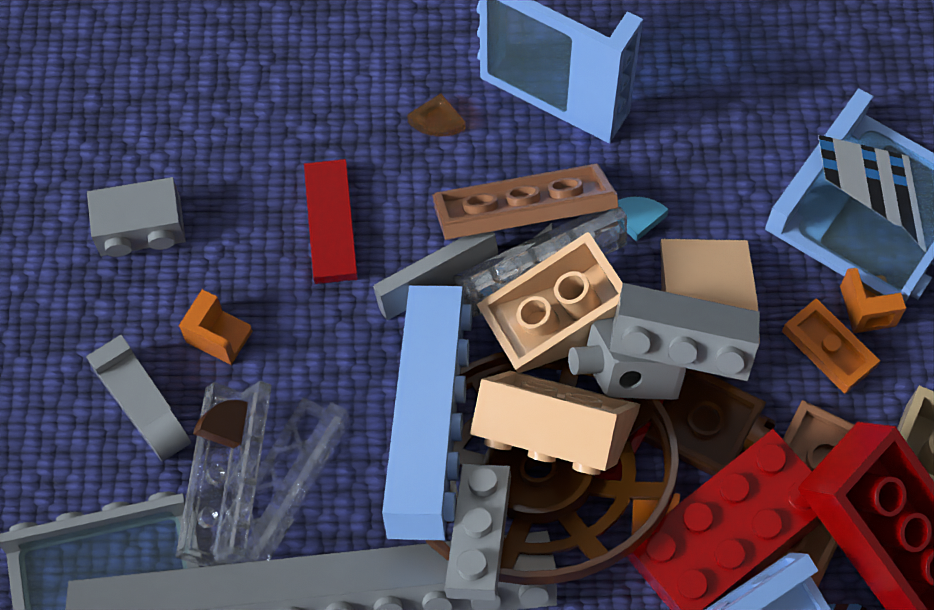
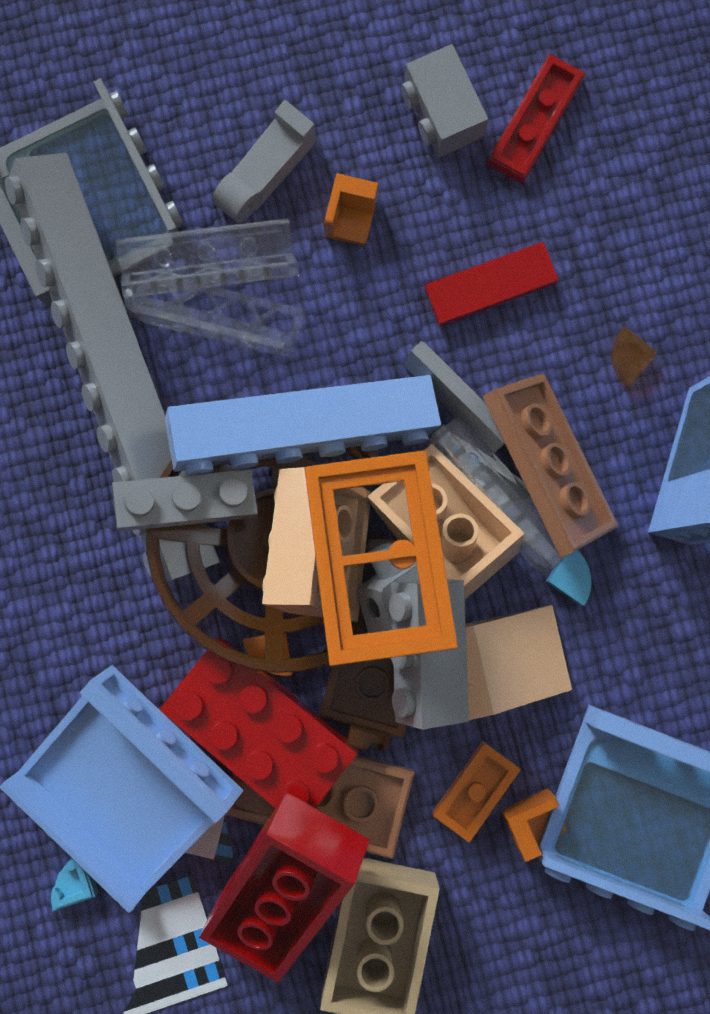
camera: 75 degrees right, 20 degrees up
(180, 145) = (535, 119): none -> red tile
(223, 423) = (250, 242): reddish brown tile -> none
(588, 299) = (425, 550): none -> orange door
(876, 180) = (664, 808): sticker -> none

